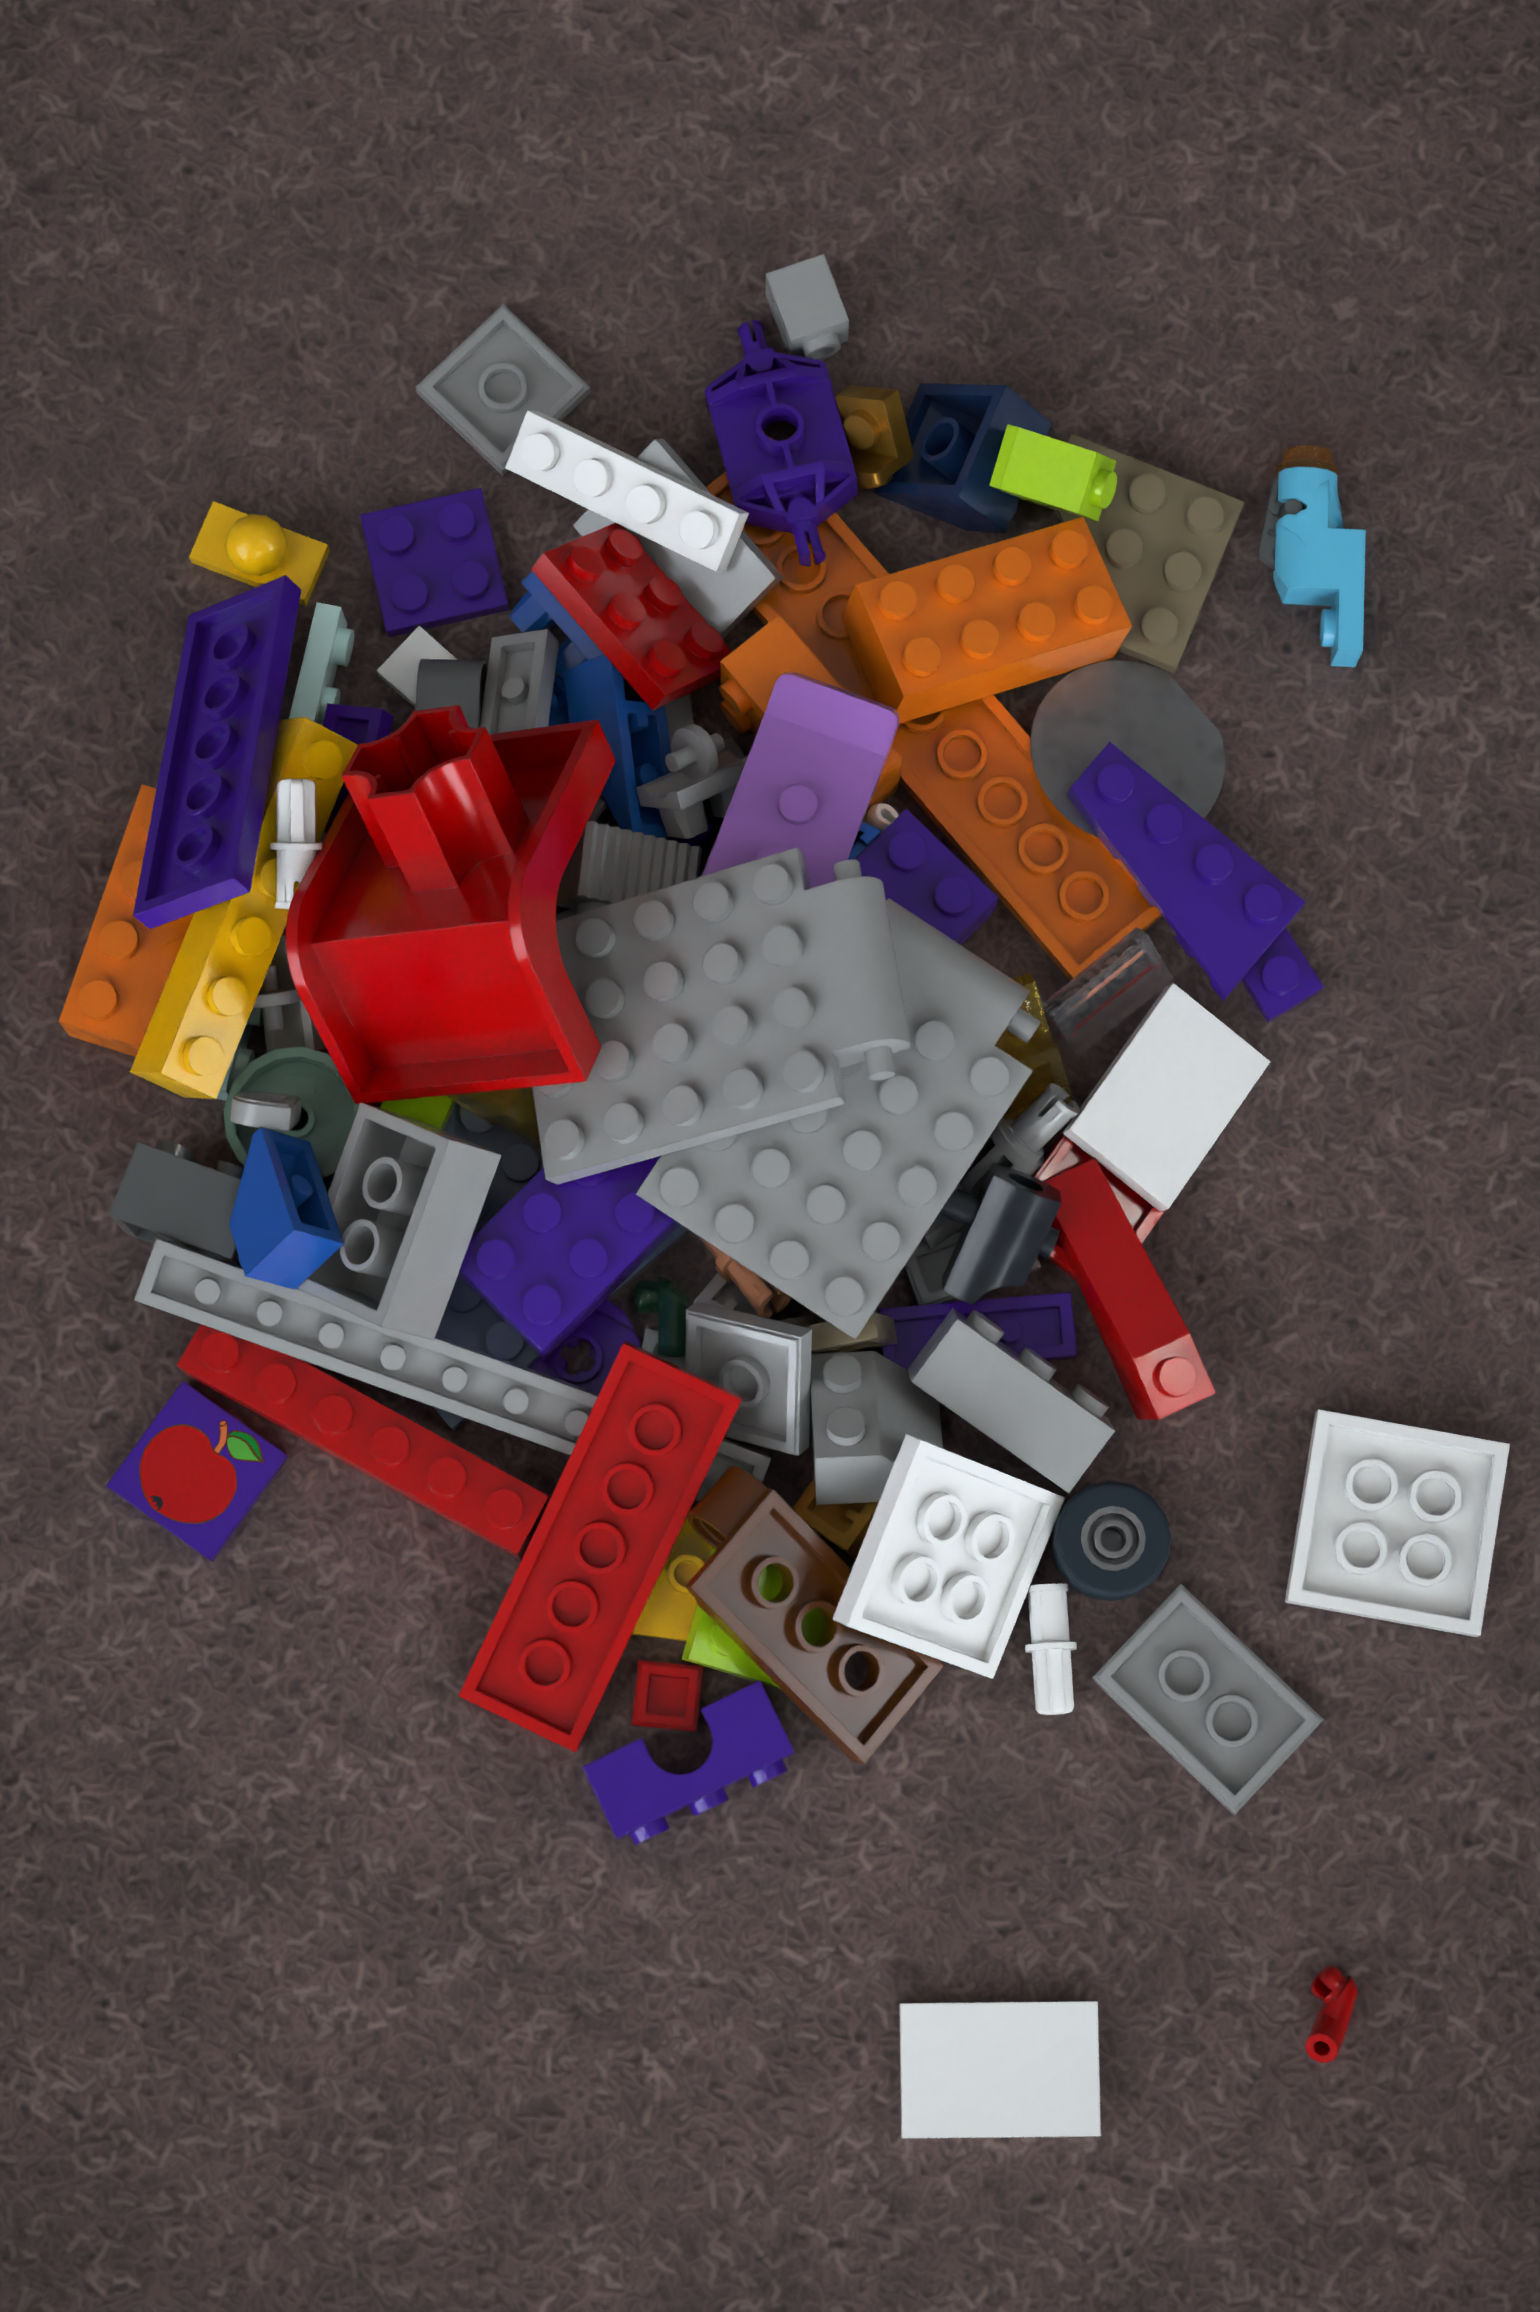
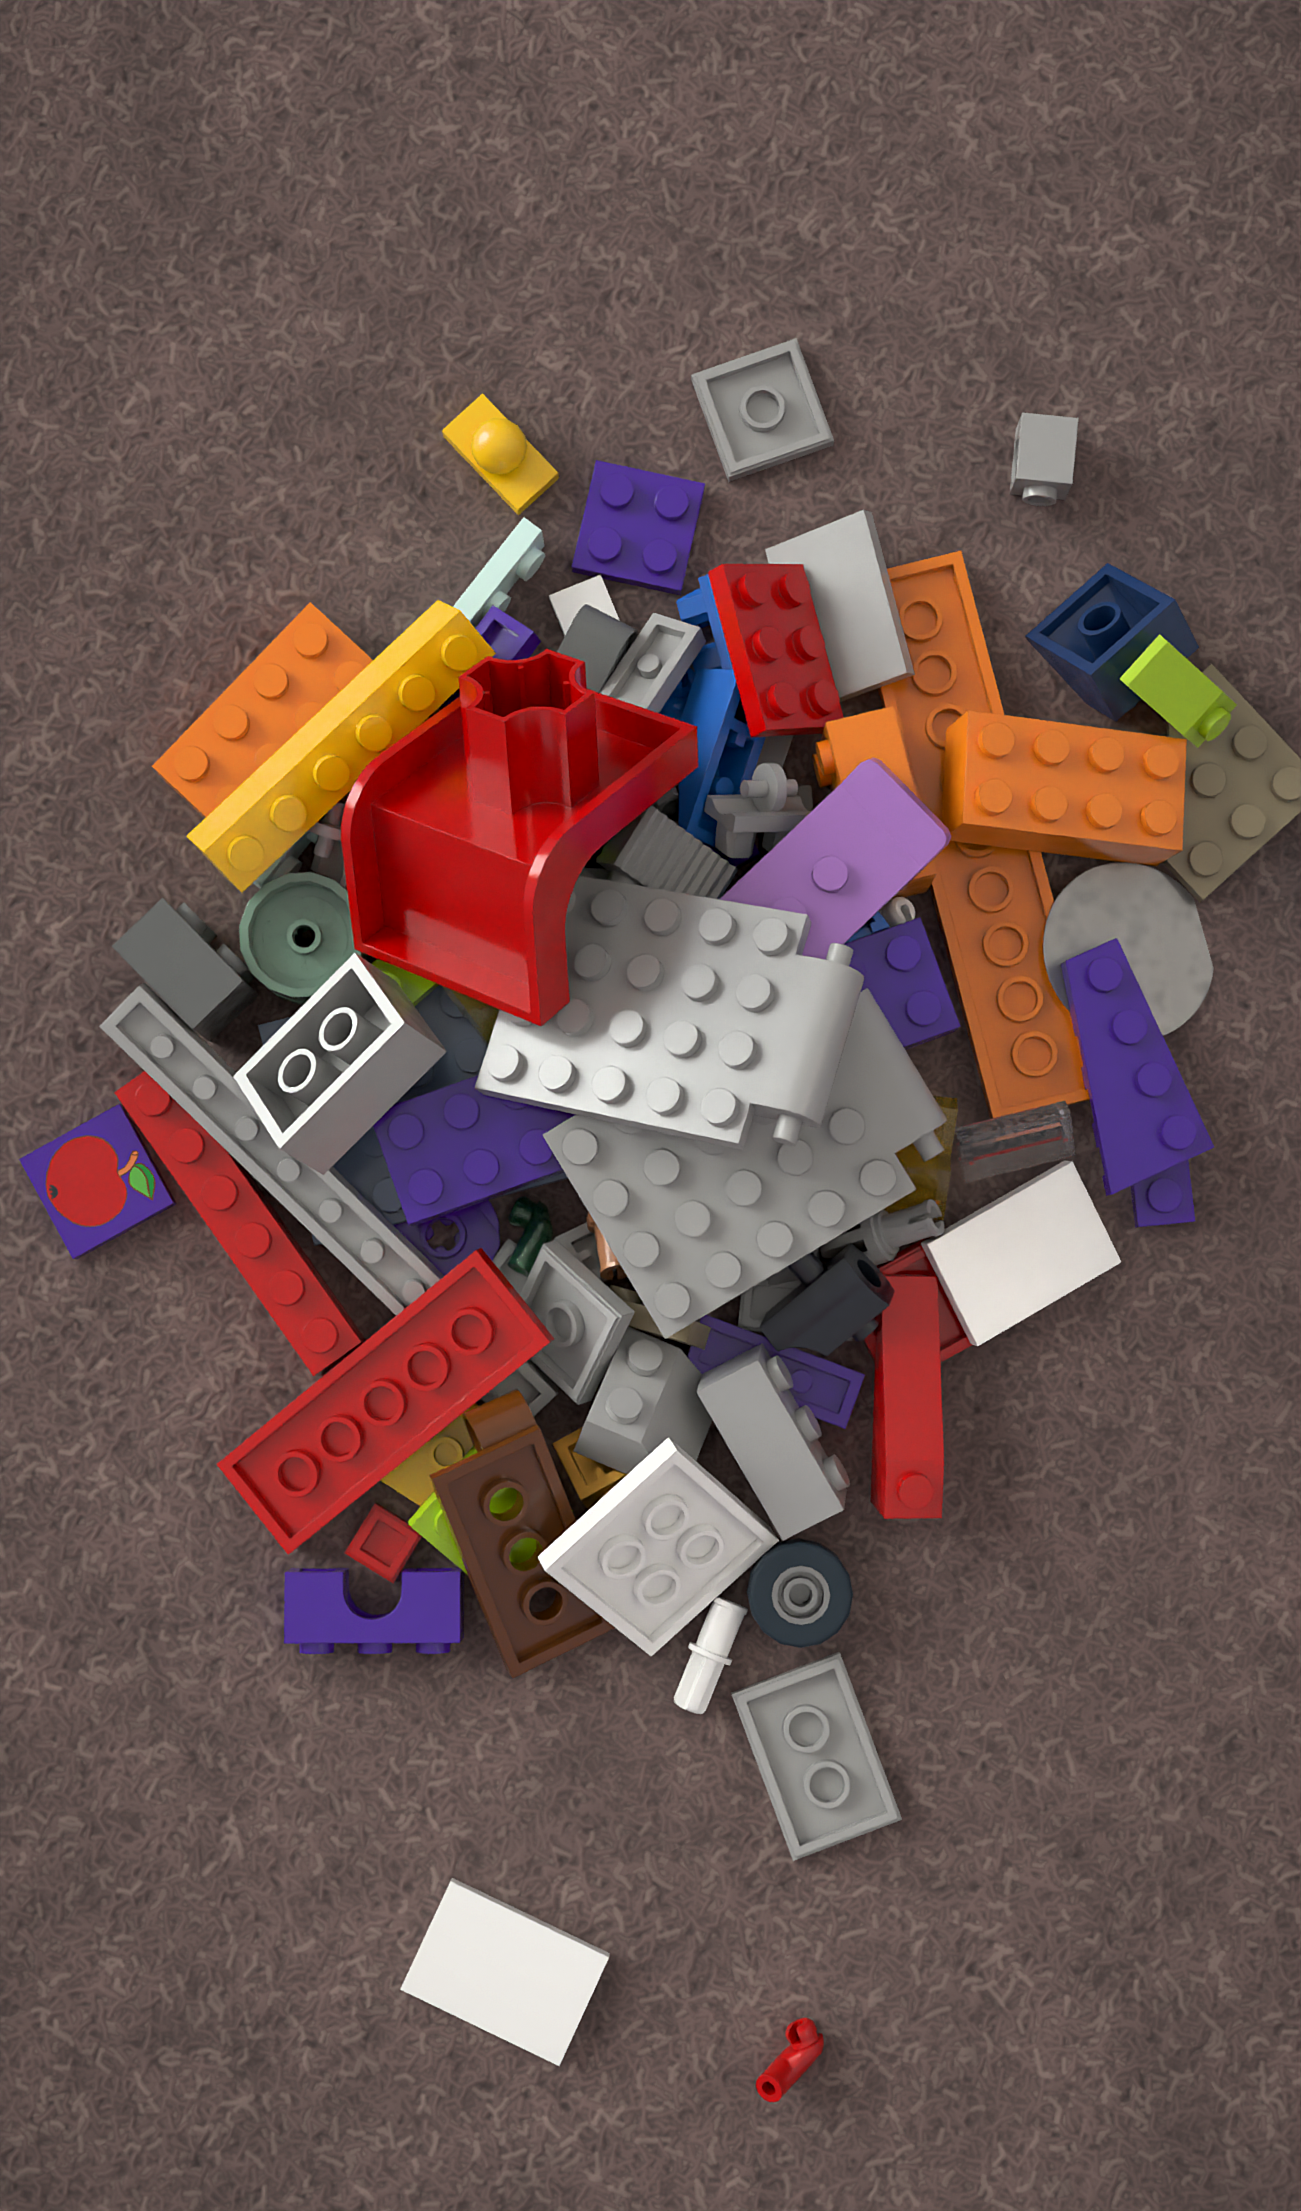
camera: 30 degrees right, 5 degrees up
(218, 754) = (379, 607): dark purple plate -> none
(266, 1110) = (279, 921): light grey tile -> none
(282, 1212) = (250, 1011): blue slope -> none
(295, 835) = (404, 705): white axle -> none
(627, 490) = (820, 542): white plate -> none
(789, 481) = (959, 596): dark purple plate -> none
(874, 433) = (1046, 591): pearl gold bracket -> none
(1397, 1523) = (1040, 1690): white plate -> none

